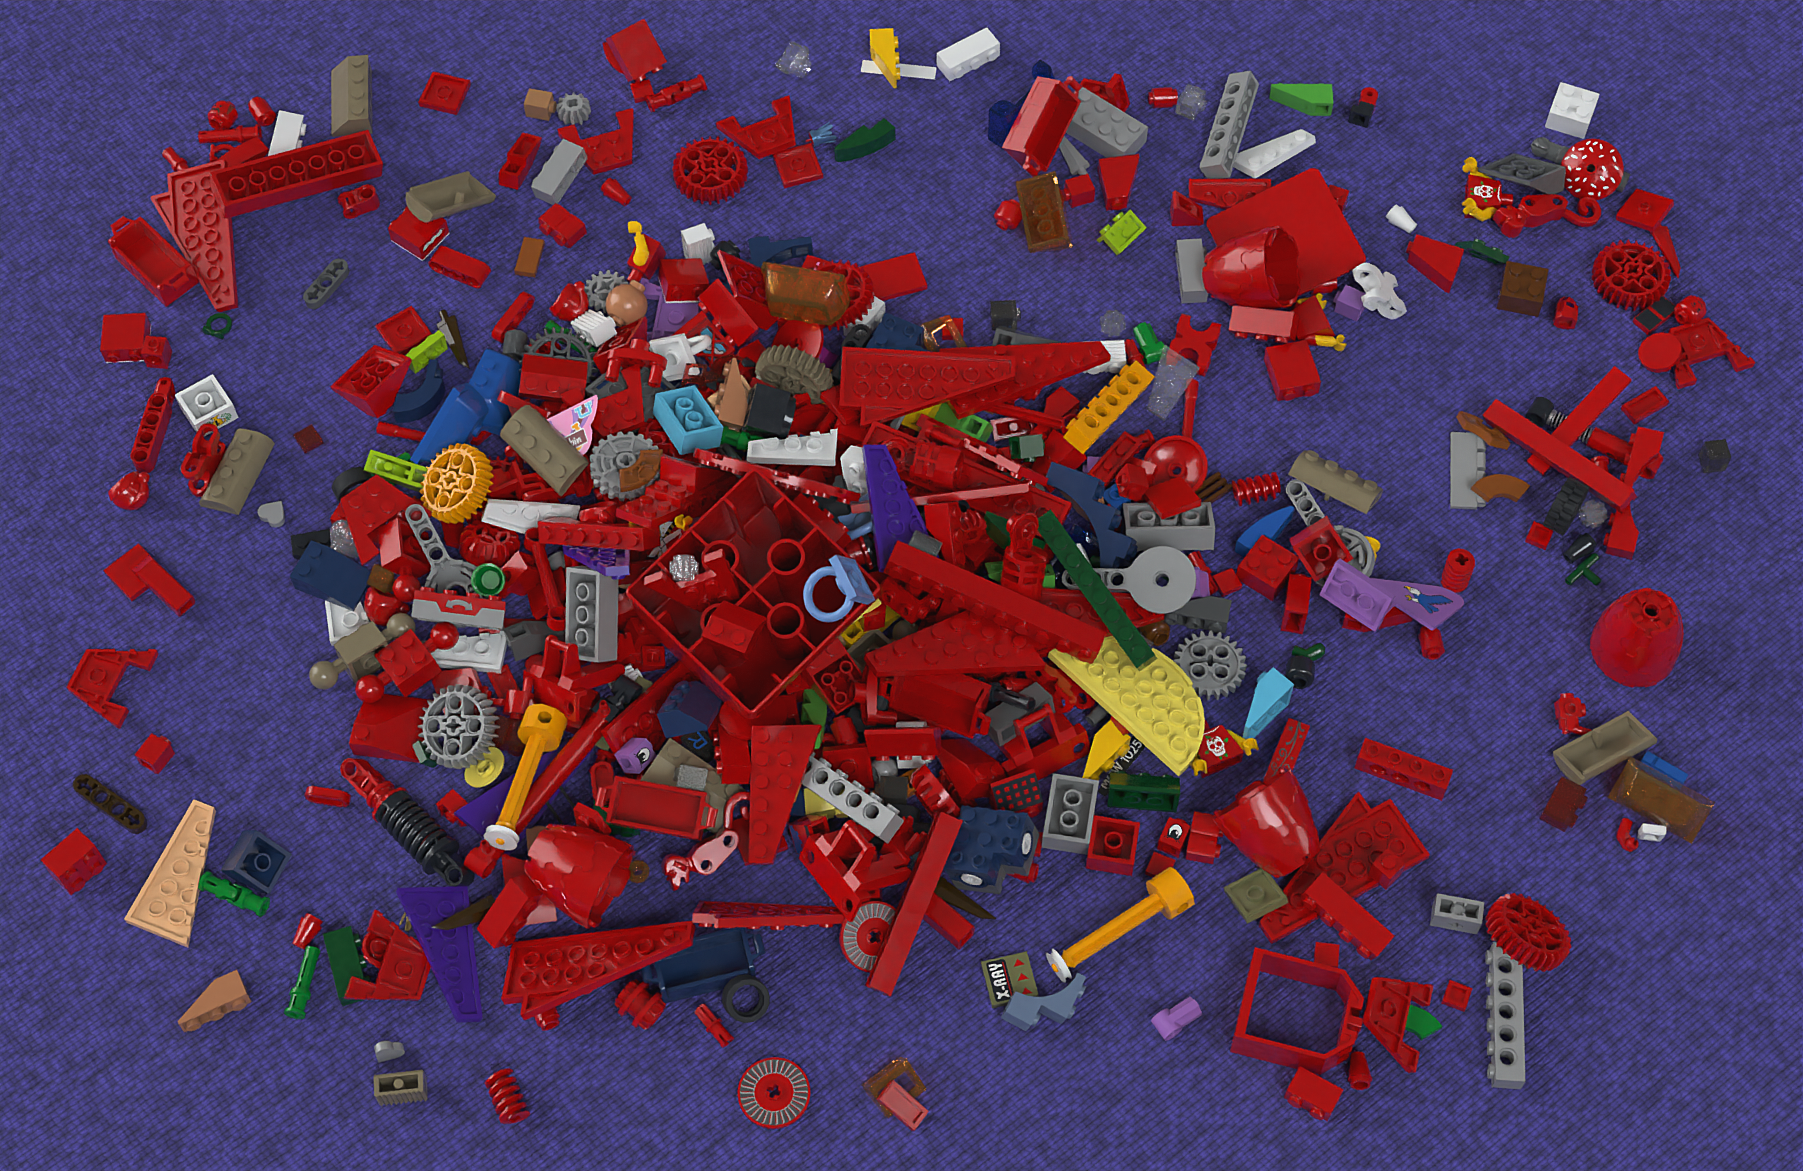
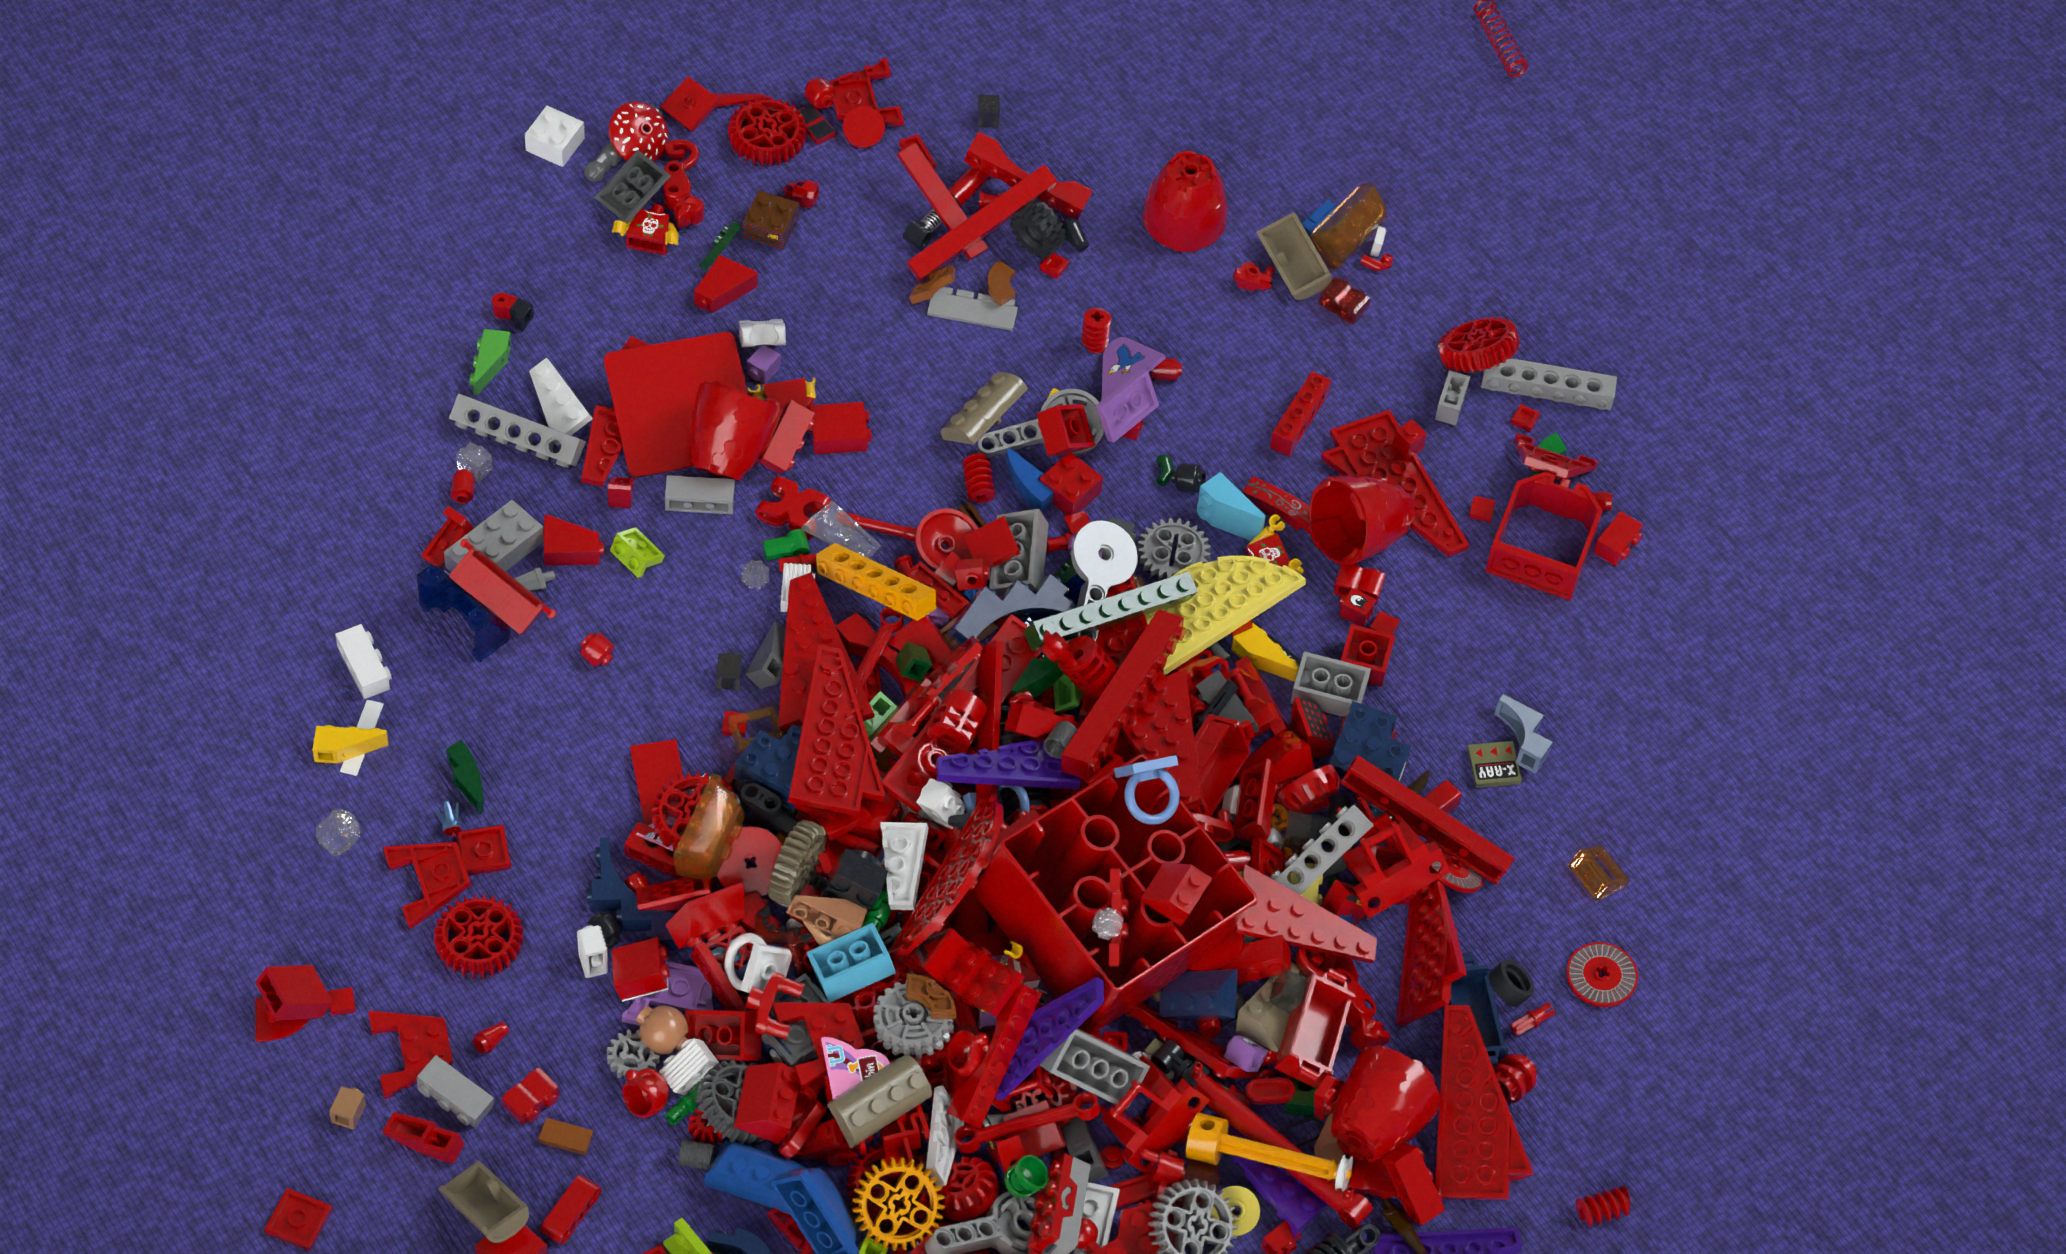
camera: 90 degrees left, 5 degrees down
(450, 329) = (659, 1226): dark brown bar -> none
(513, 316) = (652, 1155): red beam -> none
(573, 109) = (366, 1066): light grey gear -> none
(645, 256) = (599, 1003): red torso -> none
(678, 91) = (356, 963): red piece -> none
(902, 1105) = (1621, 863): red tile -> none
(1044, 213) = (612, 609): clear orange windscreen -> none
(1079, 190) = (575, 580): red brick -> none
(1143, 792) = (1308, 620): dark green slope -> none
(1167, 894) = (1422, 617): light orange piece -> none
(1172, 1021) = (1543, 637): medium lavender piece -> none
(1255, 895) = (1422, 550): olive tile -> none
(1296, 603) = (1117, 465): red slope -> none
(1346, 916) = (1452, 480): red brick -> none
(1401, 219) = (661, 306): white cone -> none
(1583, 569) = (1097, 239): dark green piece -> none

